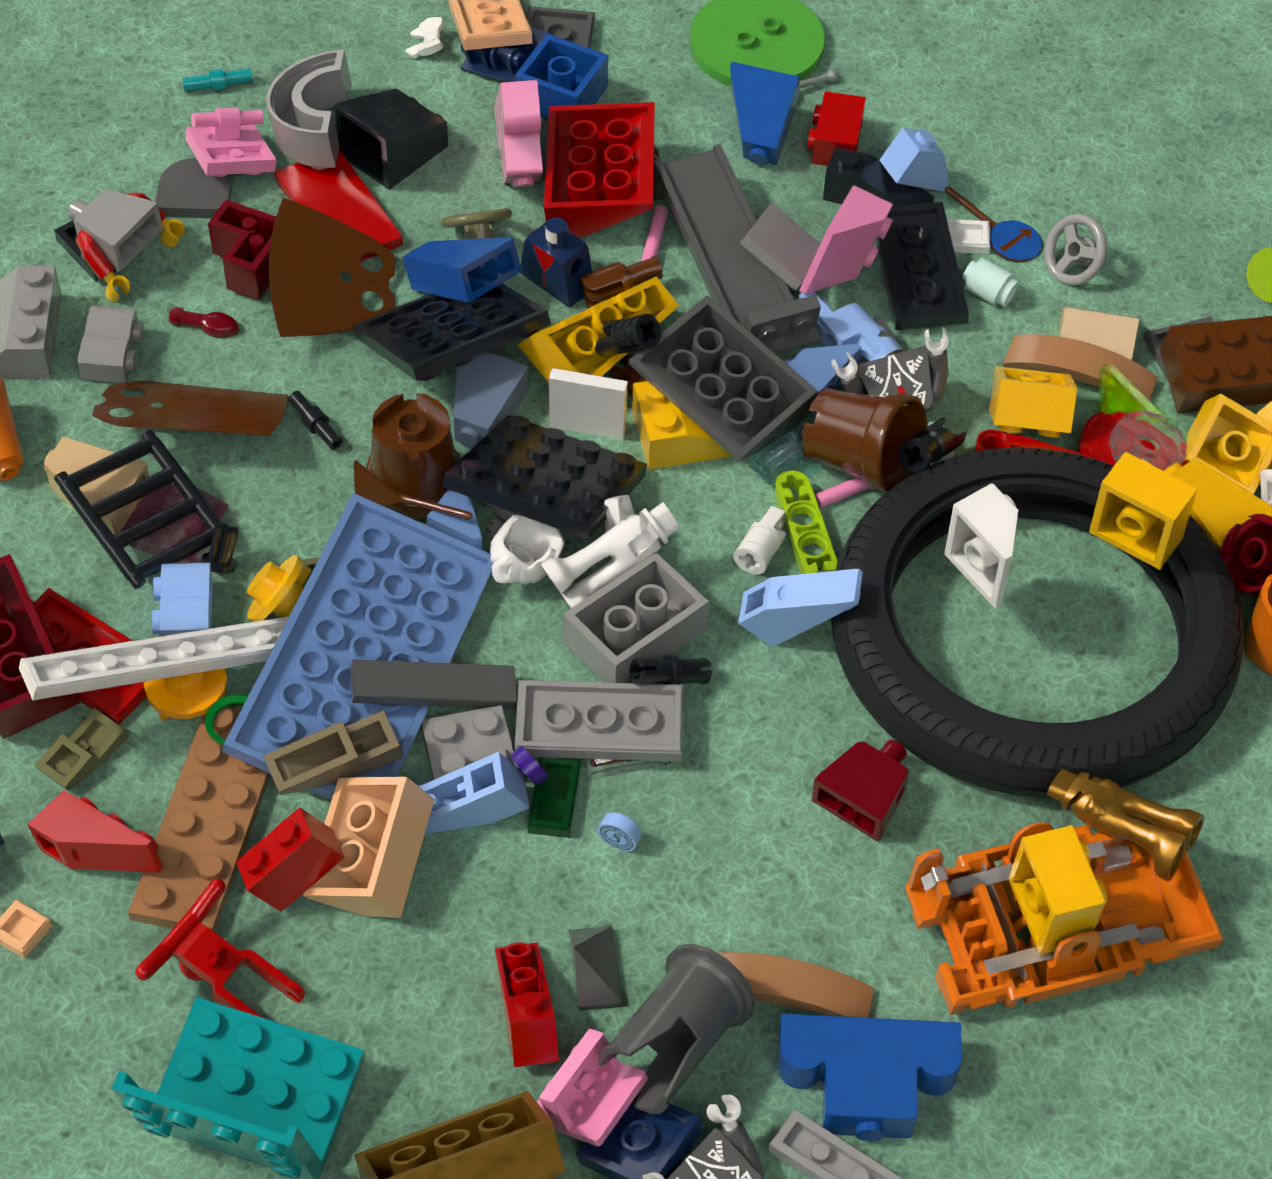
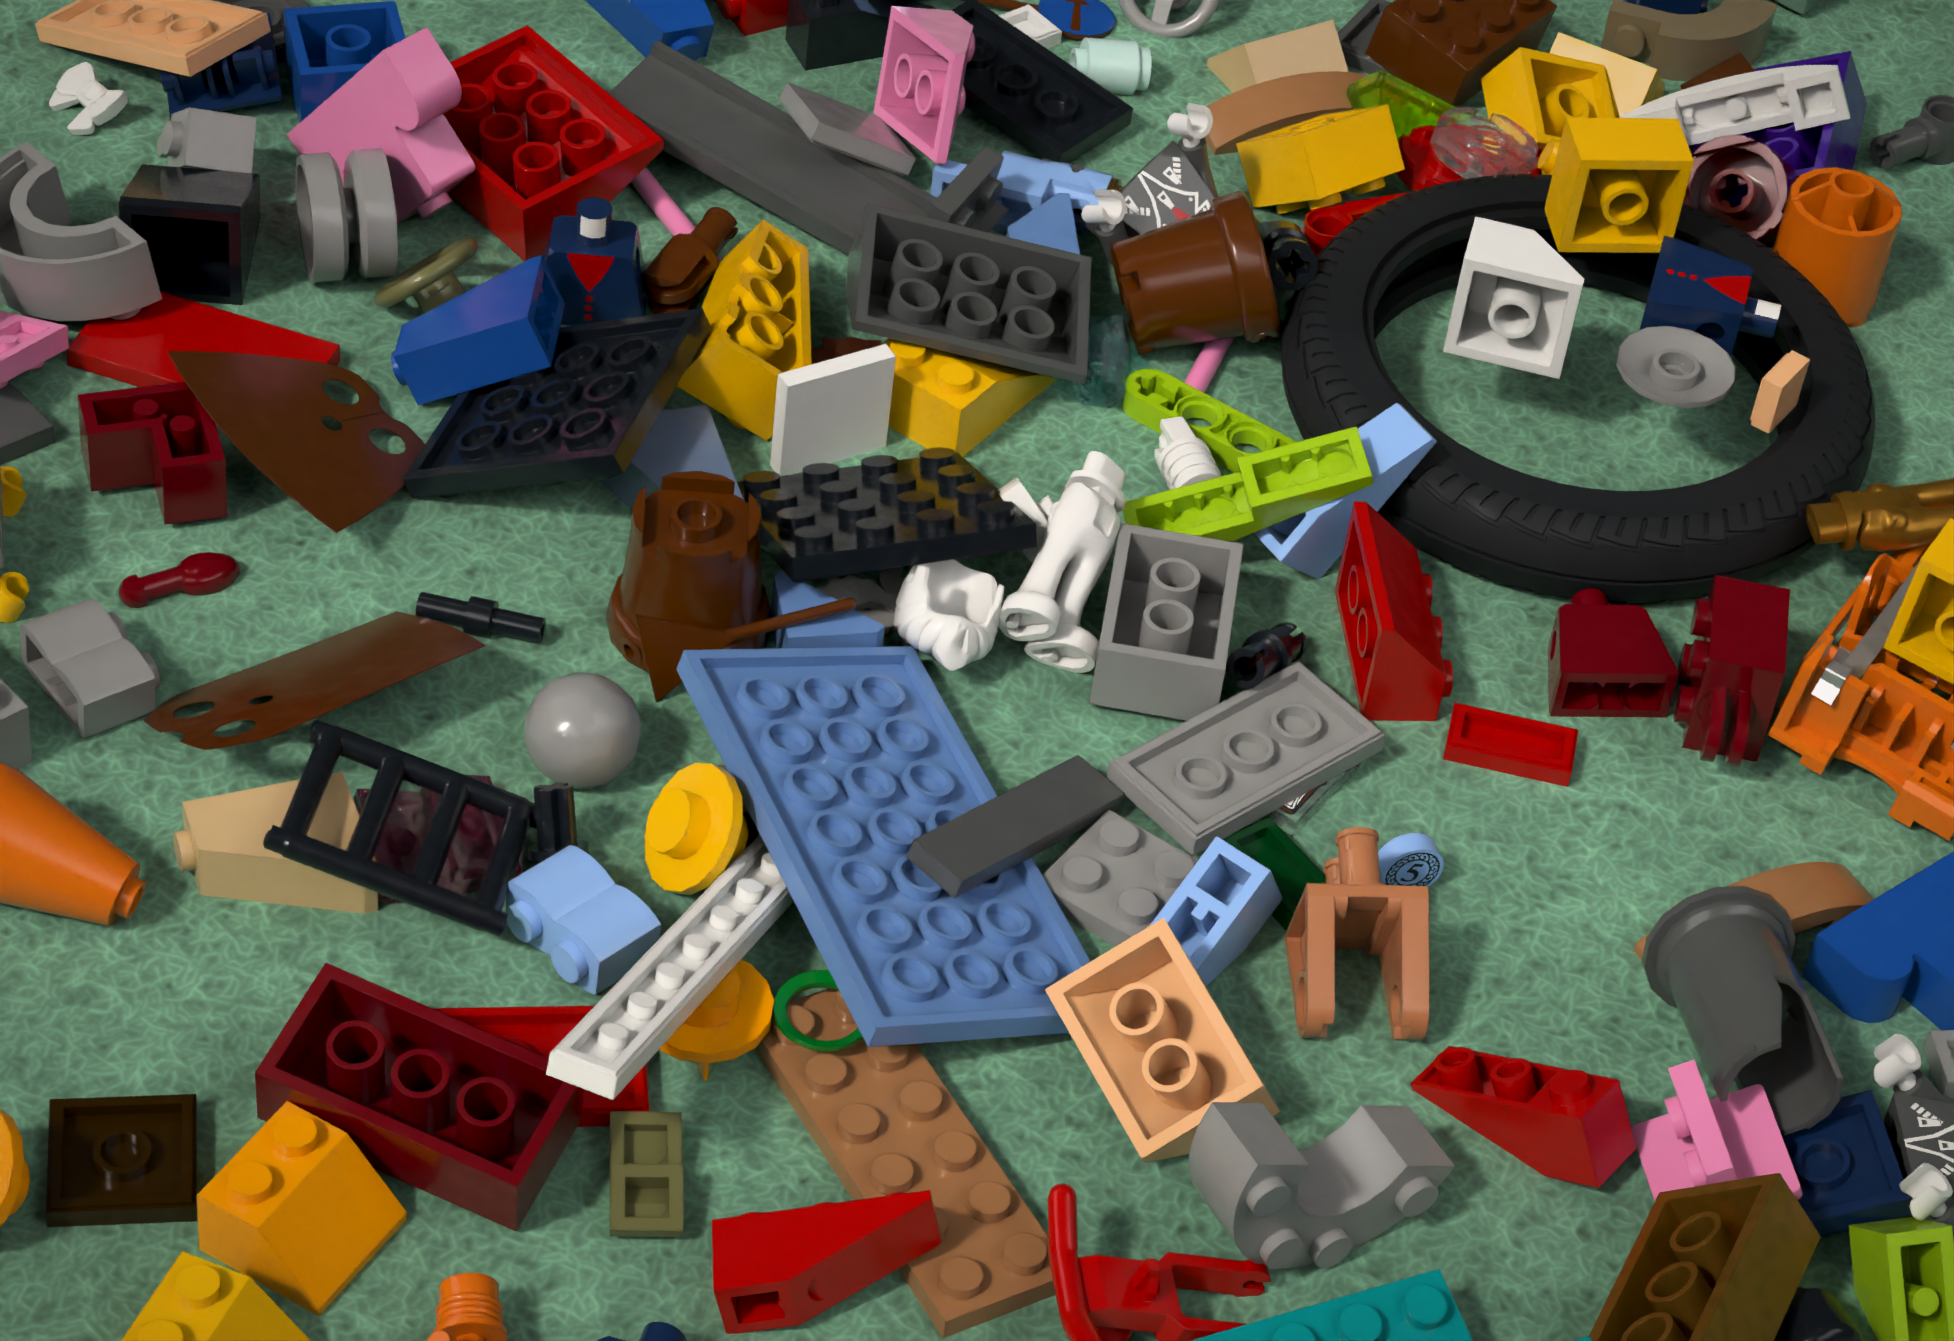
camera: 45 degrees left, 10 degrees down
(282, 507) = (582, 730): none -> light grey piece
(290, 859) = (1102, 1115): red brick -> none
(334, 754) = (1021, 957): dark tan slope -> none
(345, 969) = (1316, 1201): none -> light grey brick
(439, 92) = (208, 140): none -> light grey brick
(461, 166) = (355, 215): none -> light grey wheel
(511, 838) = (1360, 915): none -> nougat piece
(529, 766) = (1244, 837): dark purple tile -> none
(595, 968) = (1539, 1029): dark grey slope -> none
(629, 335) = (825, 292): black hinge -> none
(744, 577) = (1263, 492): none -> lime slope
(759, 691) = (1390, 623): none -> red slope
(764, 802) = (1511, 744): none -> red tile
(924, 821) = (1733, 669): none -> dark red brick
(1059, 628) = (1675, 367): none -> light grey dish
(1106, 690) = (1779, 391): none -> light nougat tile
(1121, 609) = (1706, 295): none -> dark blue torso

